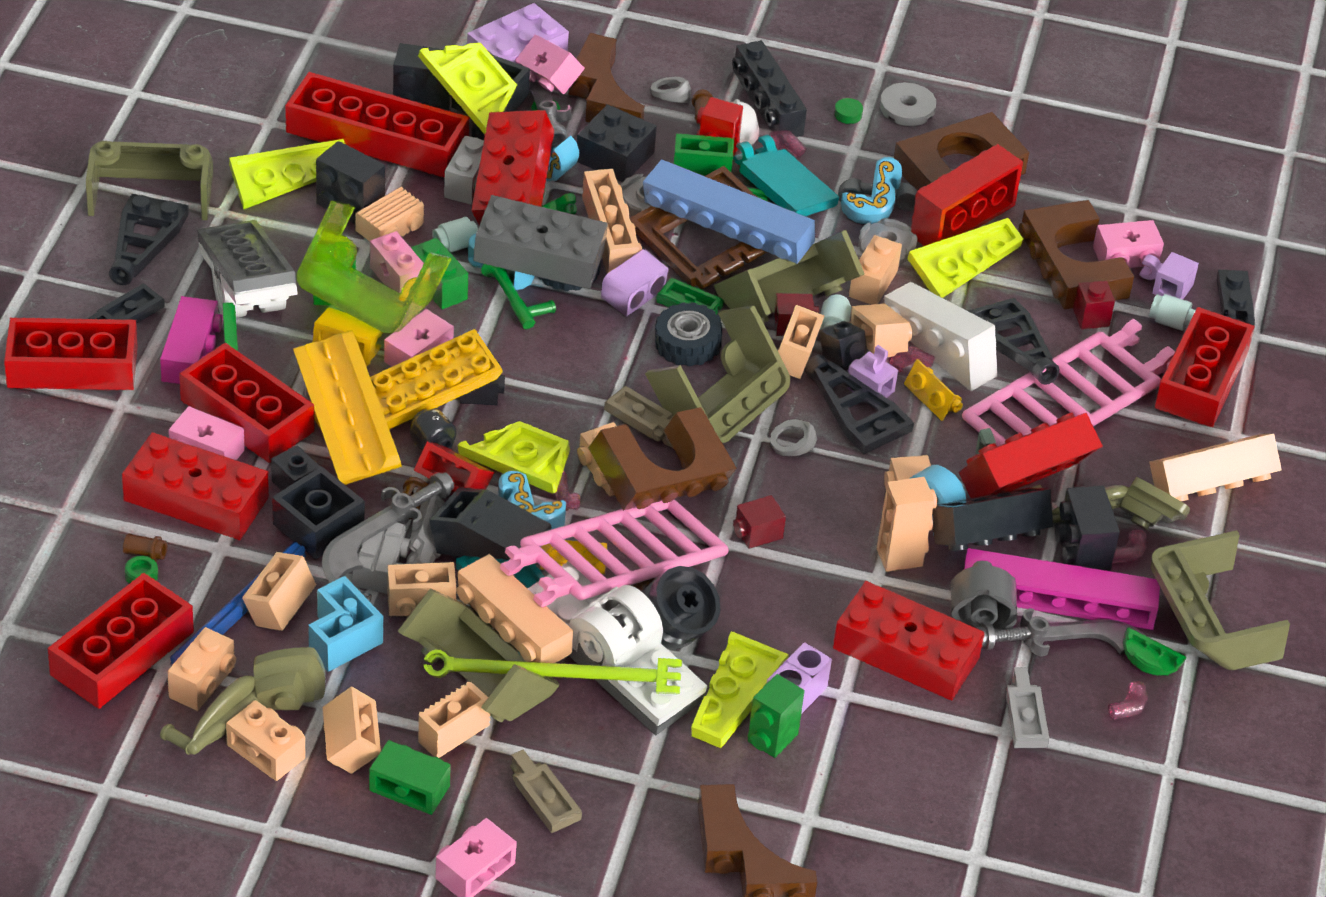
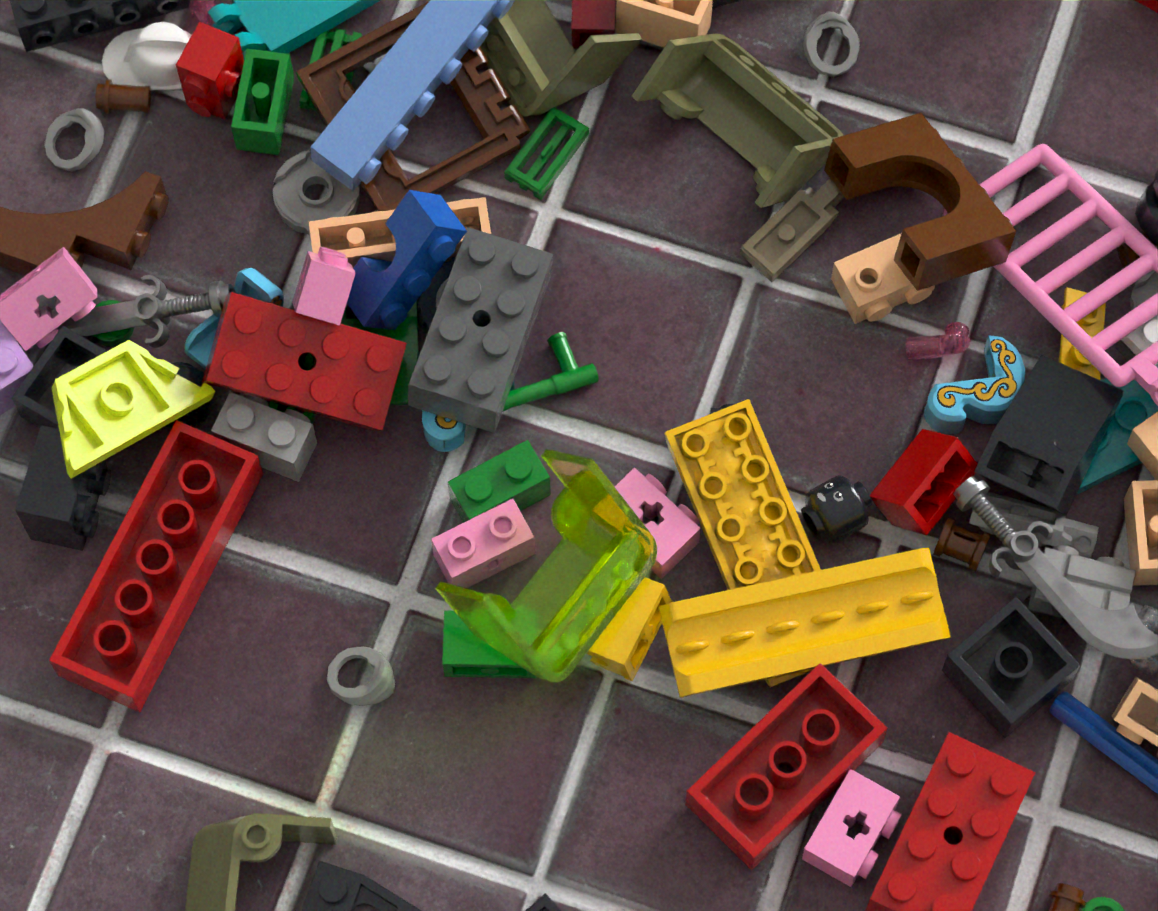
camera: 80 degrees left, 25 degrees up
(190, 336) = (637, 852): dark pink brick -> none
(229, 325) = (638, 792): green tile -> none
(246, 267) = (523, 757): dark grey piece -> none
(275, 172) = (245, 725): neon yellow wing -> none
(291, 467) = (920, 700): black brick -> none
(304, 227) = (379, 687): none -> light grey piece
(348, 178) = (311, 606): black brick -> none
(391, 213) = (367, 555): light nougat brick -> none
(456, 233) = (409, 463): light aqua brick -> none
(522, 450) = (878, 390): neon yellow wing -> none
(559, 162) = (324, 285): none -> bright pink brick
(591, 202) = (424, 238): none -> blue arch
(616, 142) = (213, 221): black brick -> none
(634, 282) = (525, 214): lavender piece -> none
(688, 334) = (637, 132): black wheel -> none
(759, 522) = (1002, 98): dark red brick -> none

